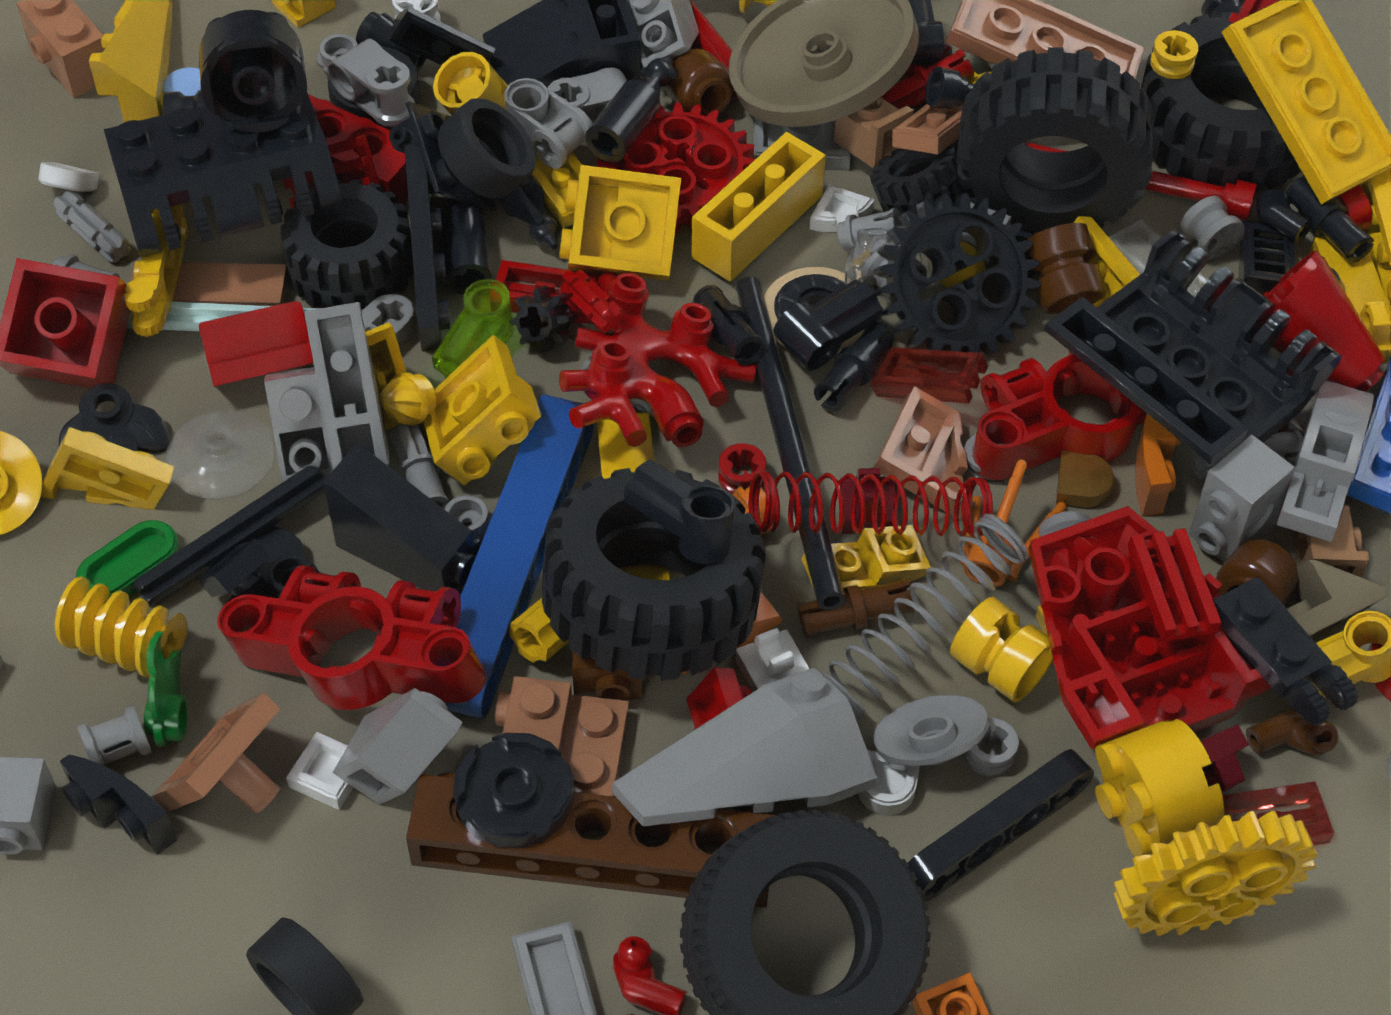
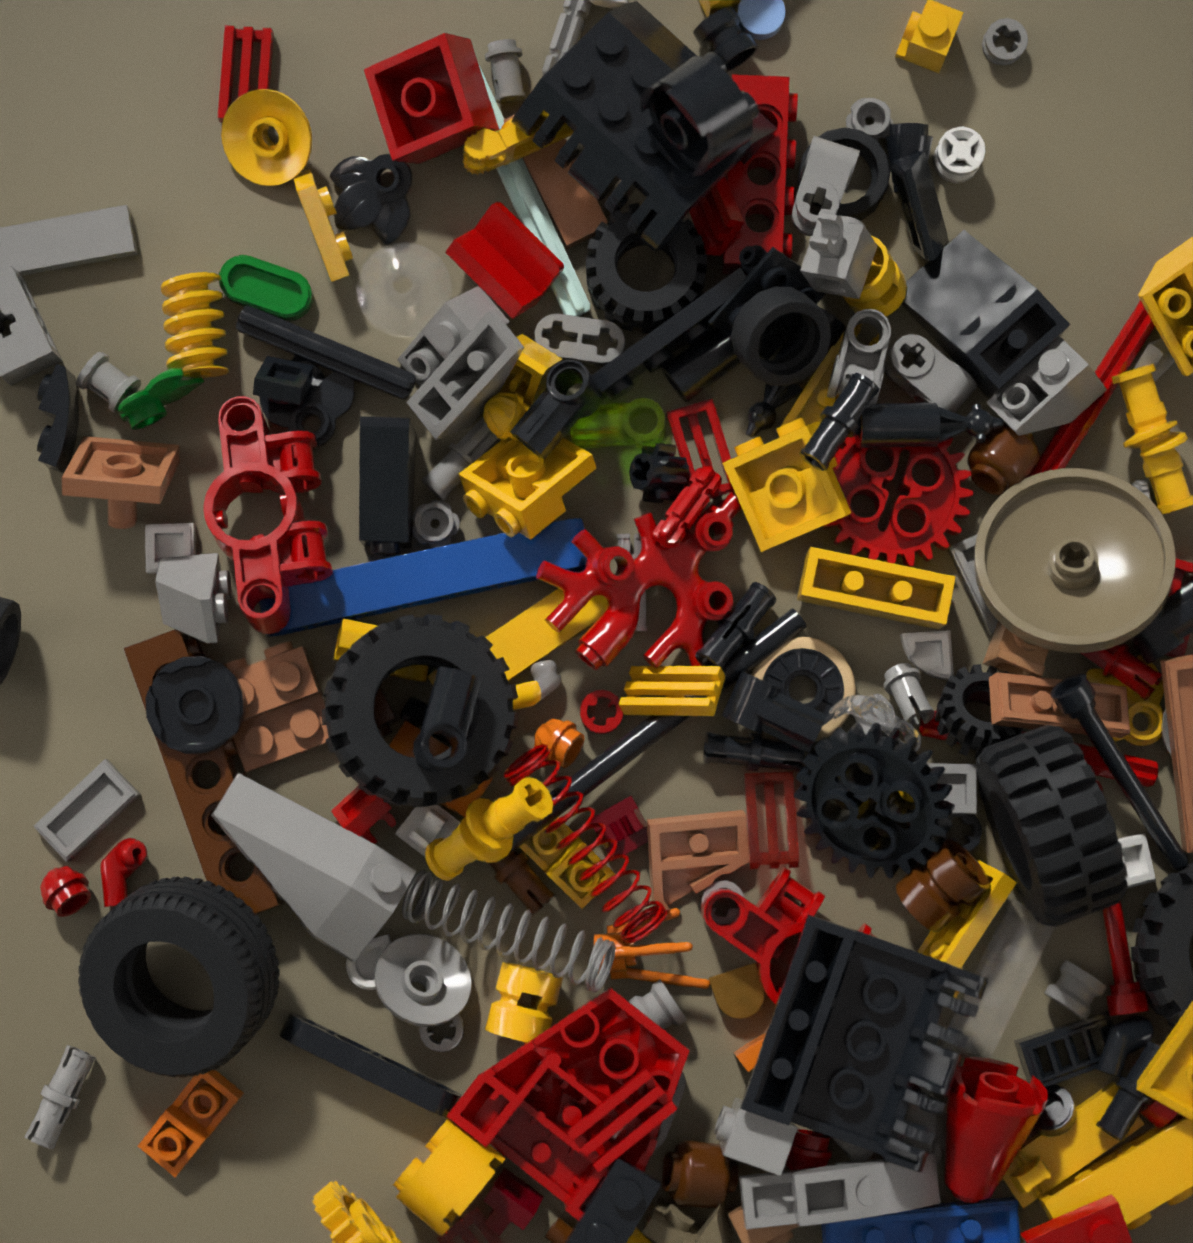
camera: 65 degrees right, 30 degrees up
(430, 339) = (555, 411): none -> black piece
(444, 73) = (838, 256): none -> light grey brick
(594, 137) = (839, 421): none -> black pin
(758, 390) = (675, 684): none -> yellow tile
(810, 567) = (488, 829): none -> yellow piece

